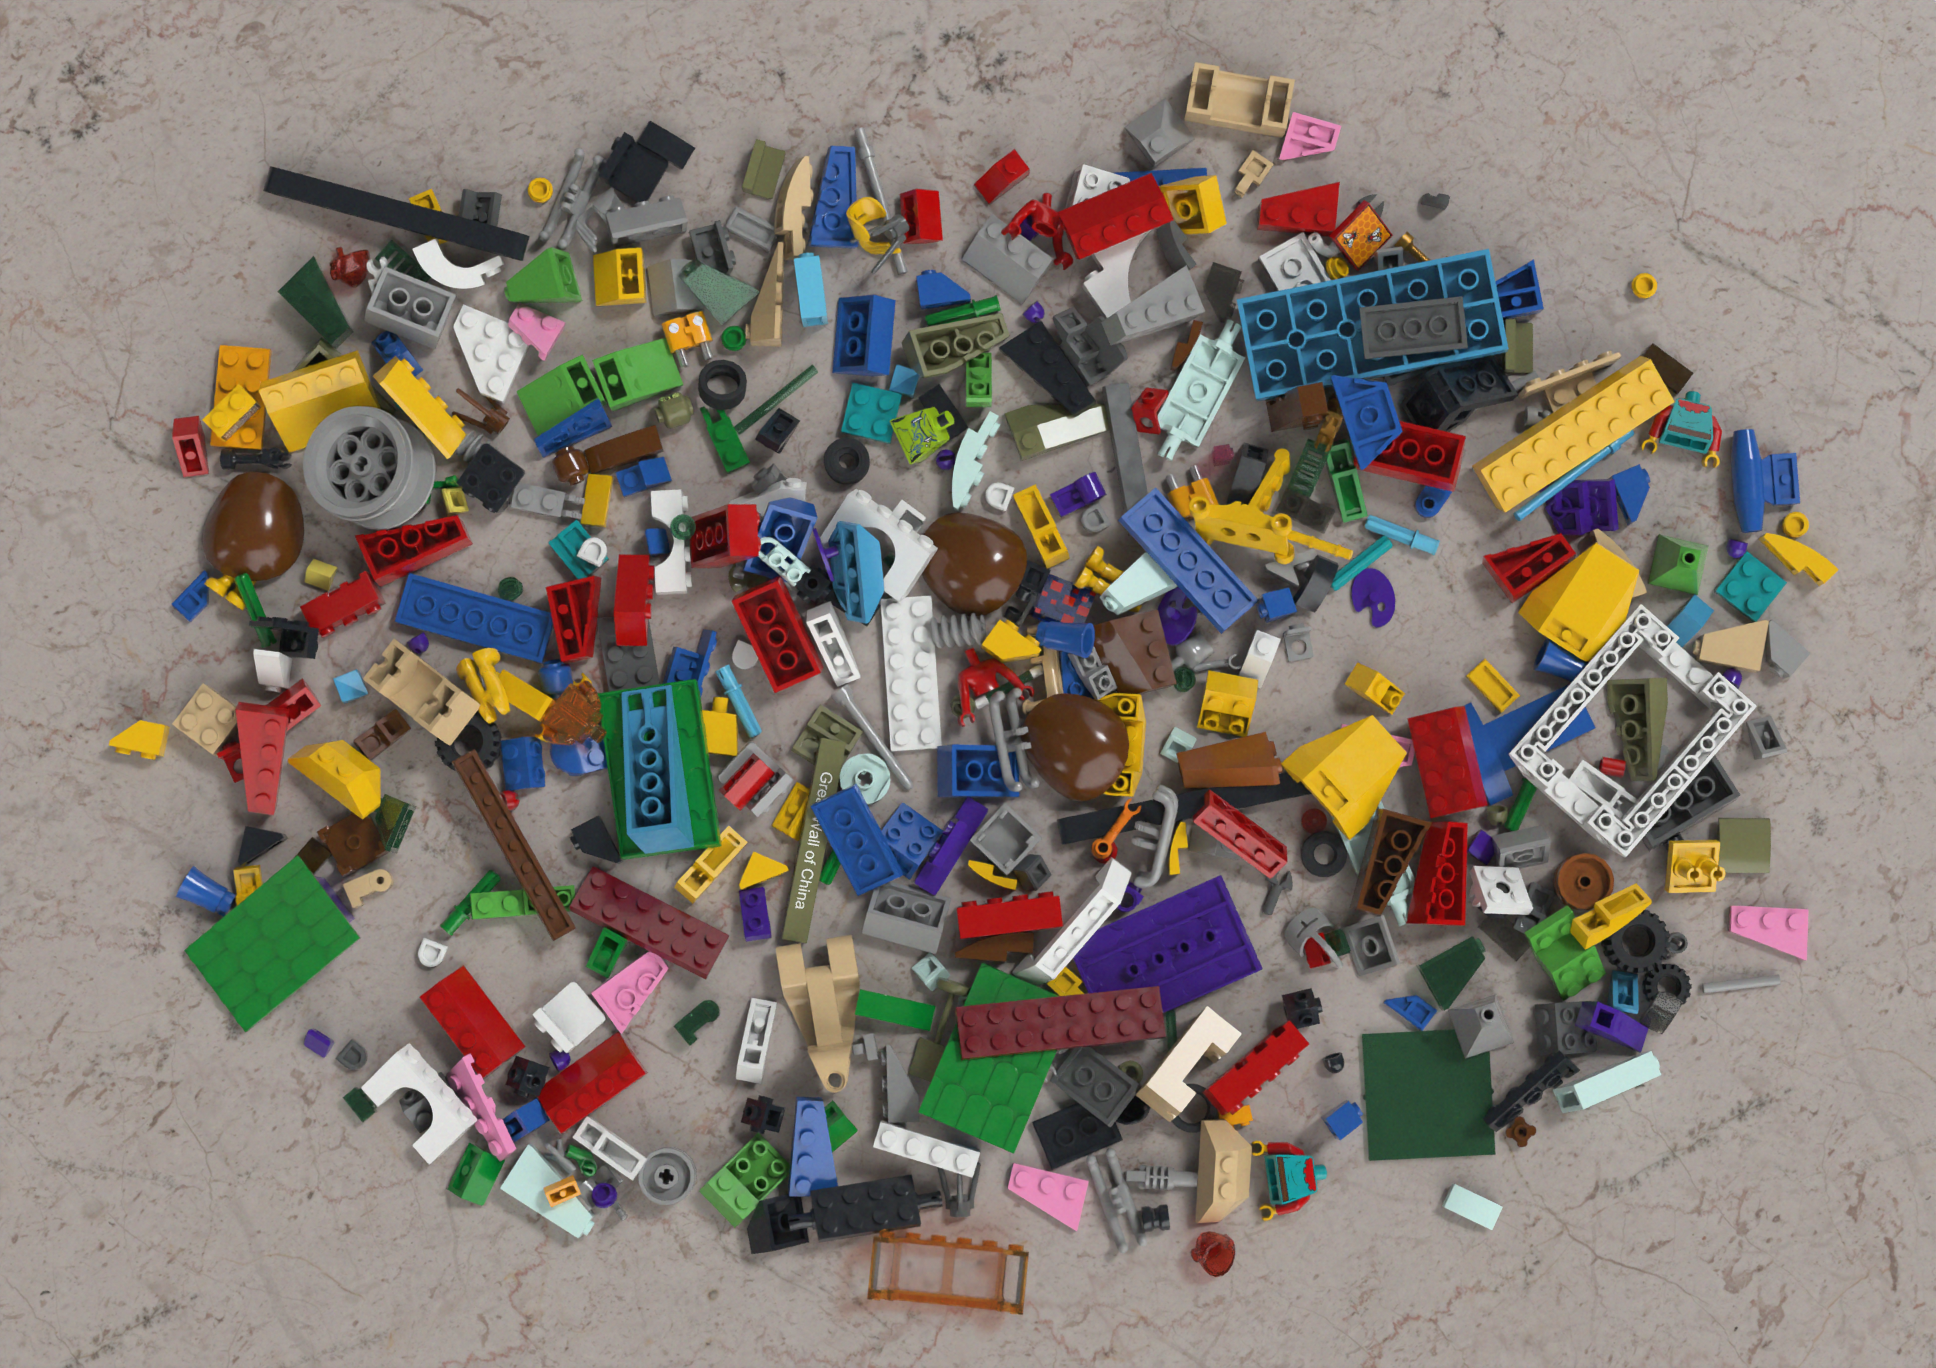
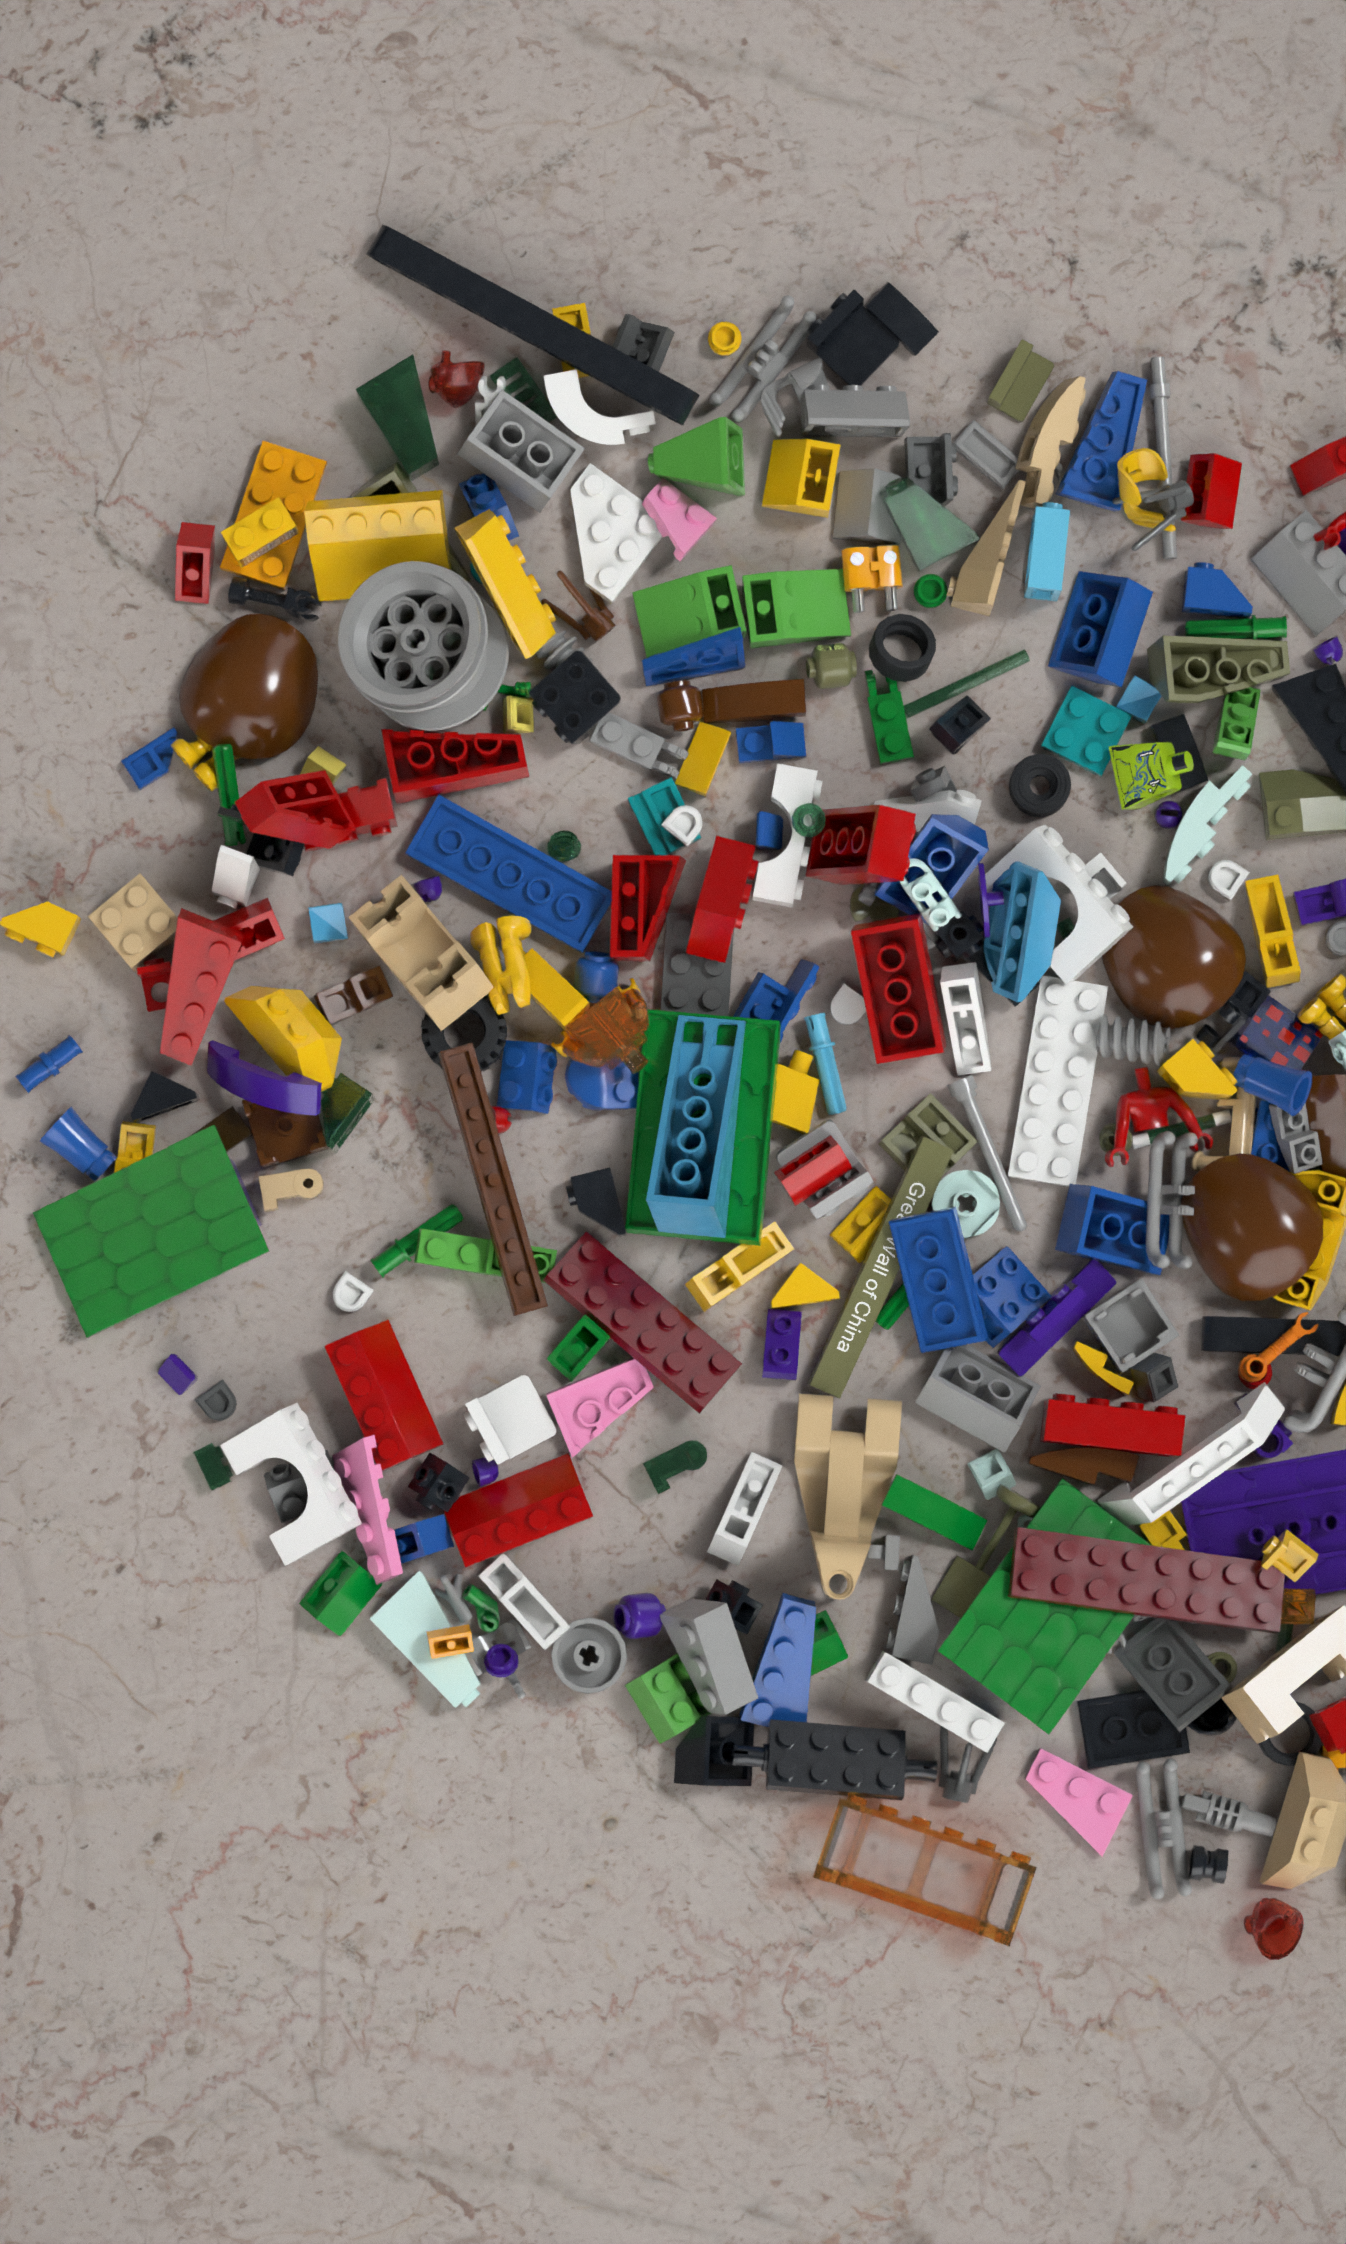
camera: 15 degrees right, 0 degrees up
(170, 838) = (49, 1064): none -> blue pin
(304, 609) = (297, 809): none -> red wedge
(328, 818) = (260, 1086): none -> dark purple slope
(697, 1137) = (638, 1615): none -> dark purple head
(755, 1153) = (711, 1653): none -> light grey wedge
(1159, 979) = (1288, 1555): none -> yellow bracket
(1175, 1014) = (1298, 1606): none -> clear orange tile

